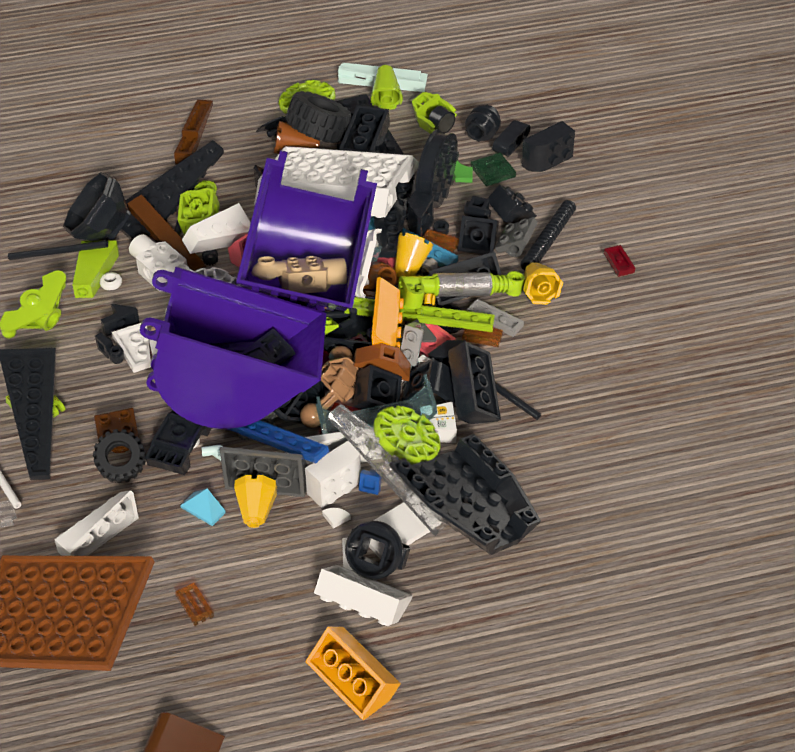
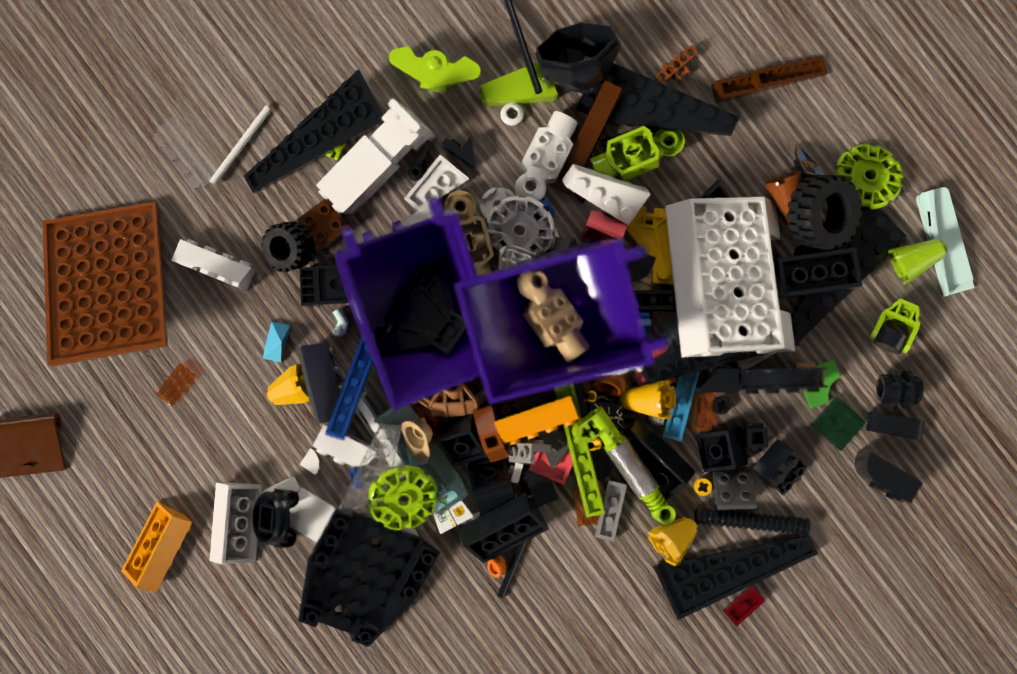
camera: 65 degrees right, 40 degrees up
(83, 358) = (373, 159): none -> white brick
(147, 175) = (669, 73): none -> dark orange piece
(361, 406) = (417, 437): none -> tan piece
(504, 257) = (708, 488): none -> yellow bush
(508, 406) = (497, 566): none -> orange tile
(586, 271) = (715, 576): none -> black wing

